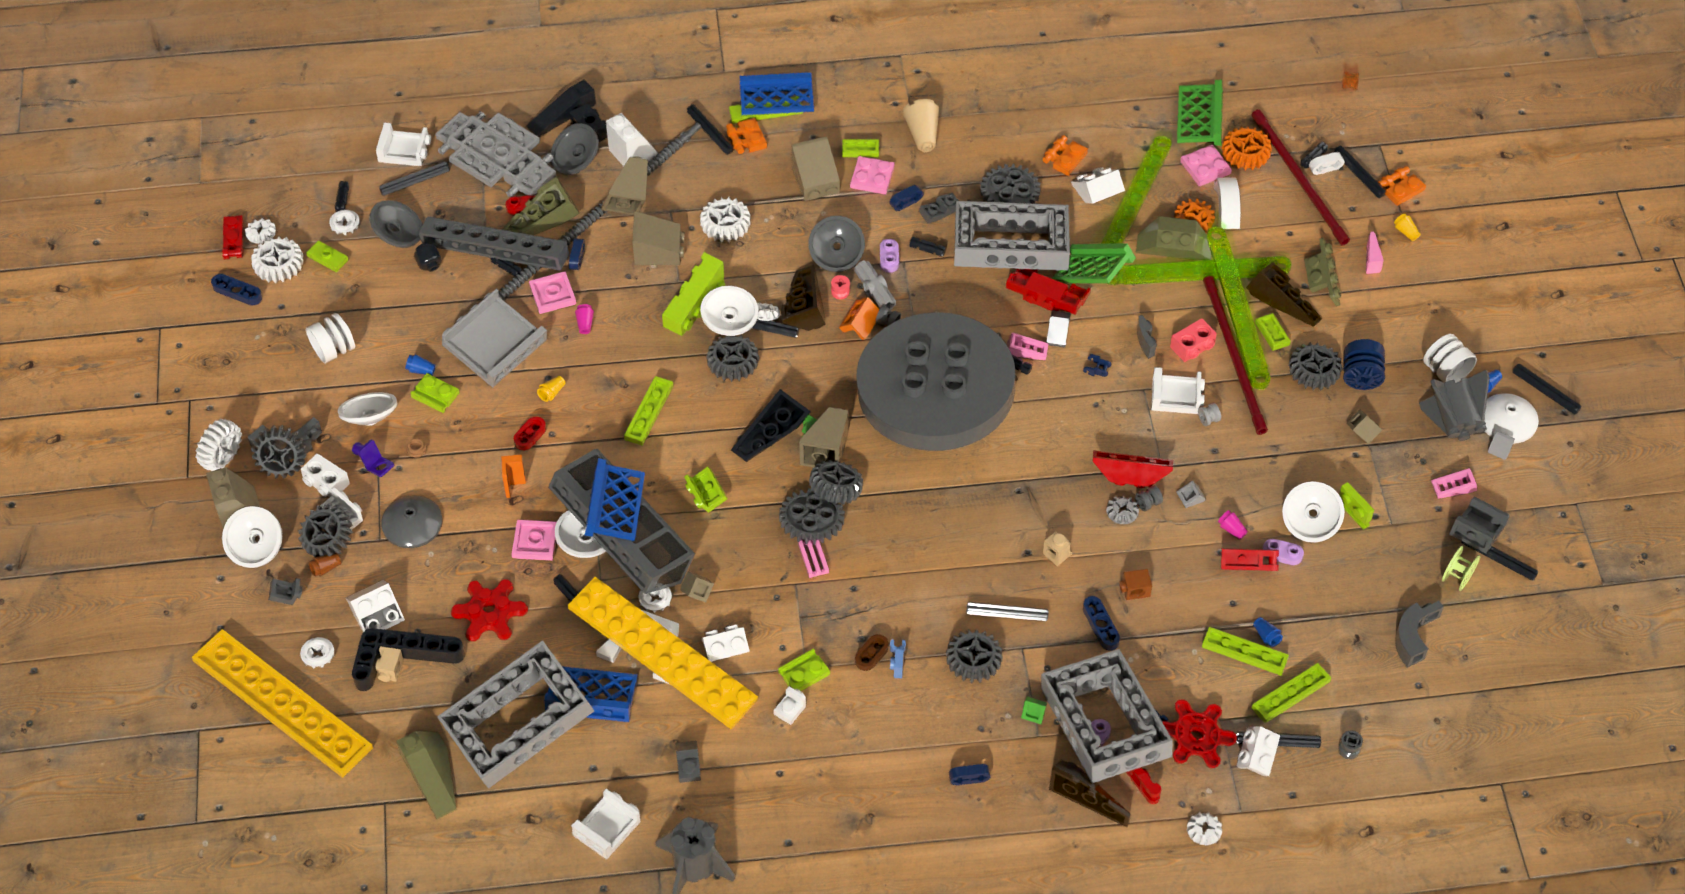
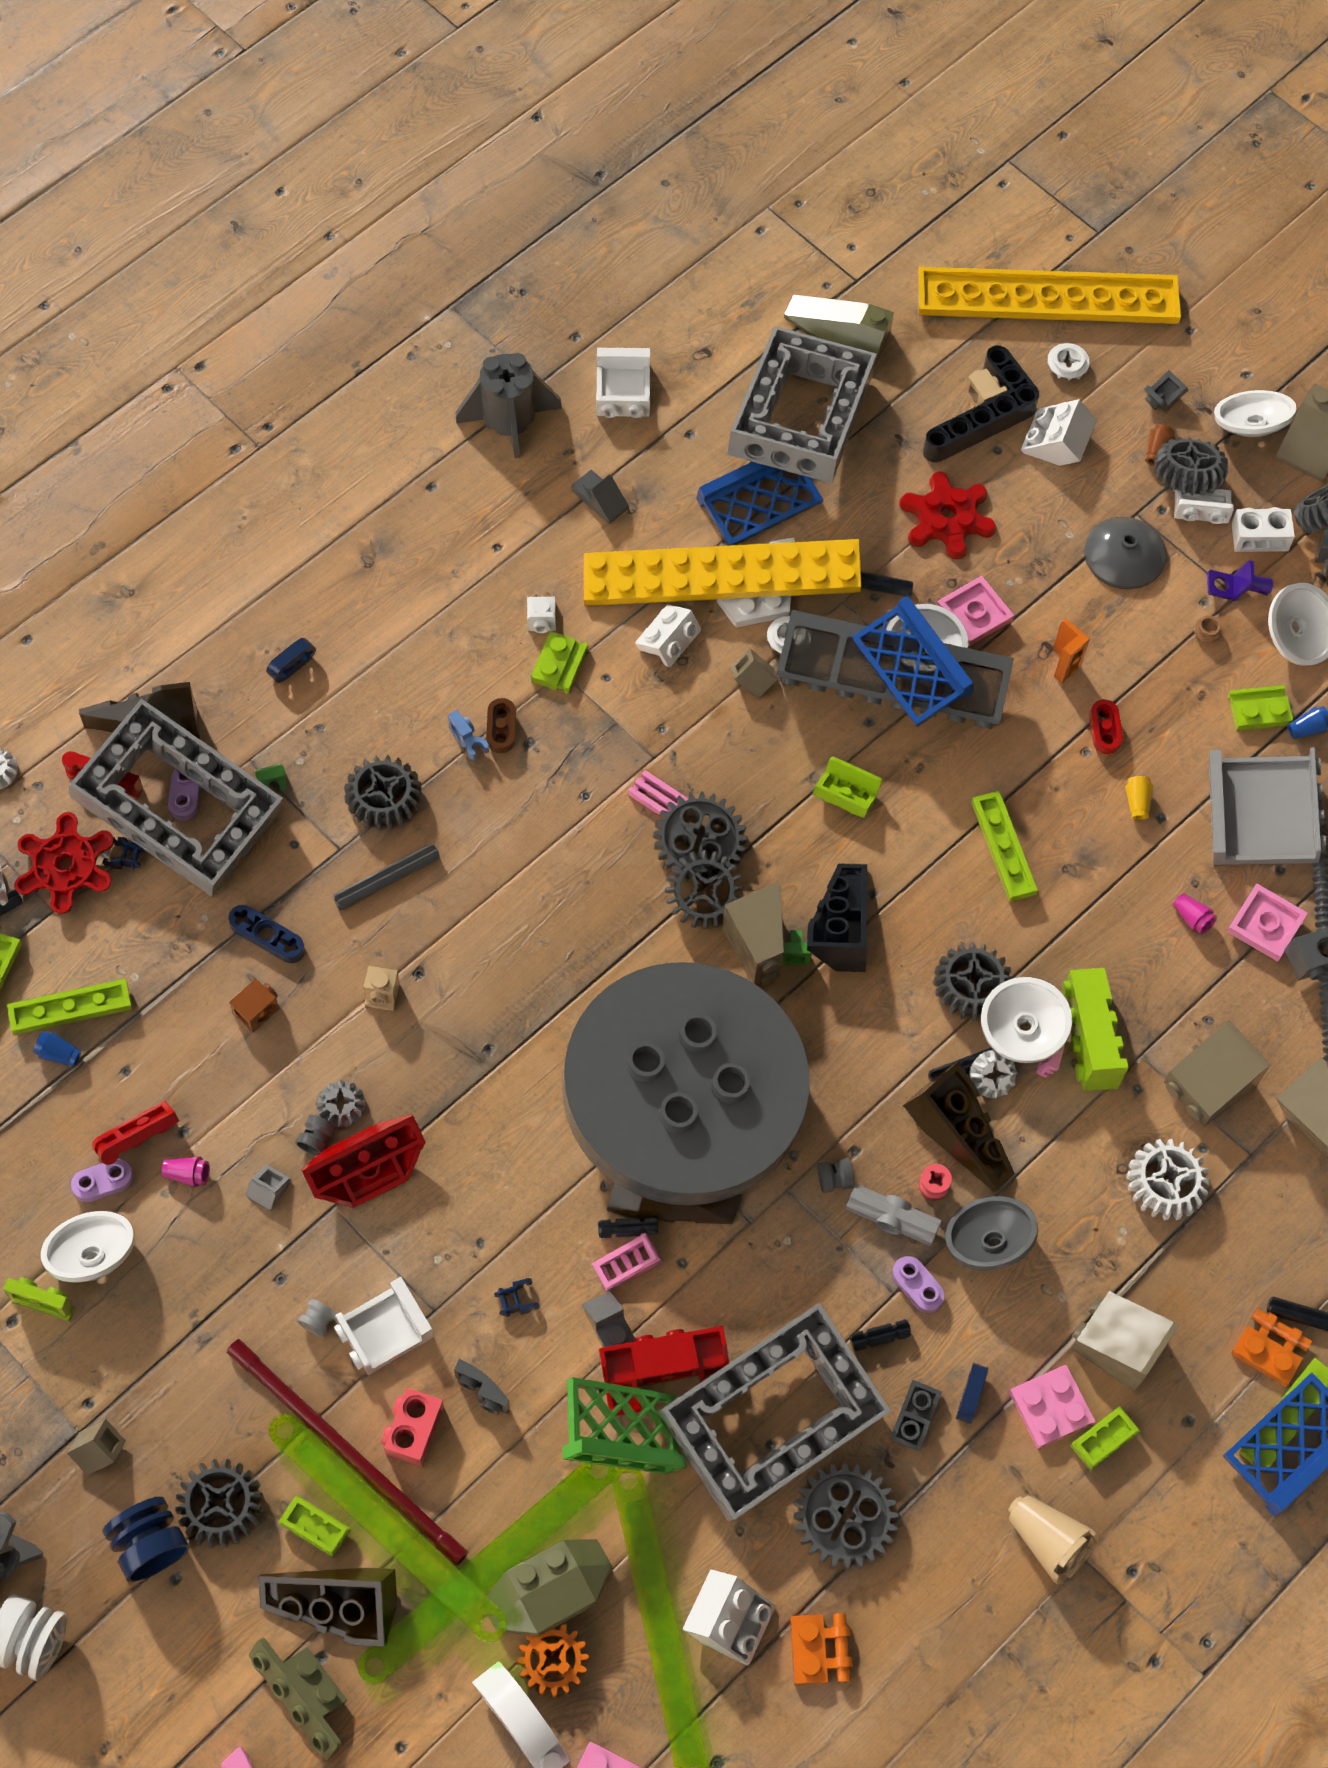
camera: 140 degrees right, 10 degrees up
(577, 254) = (1293, 995): dark blue beam -> none
(860, 318) = (871, 1152): orange panel -> none

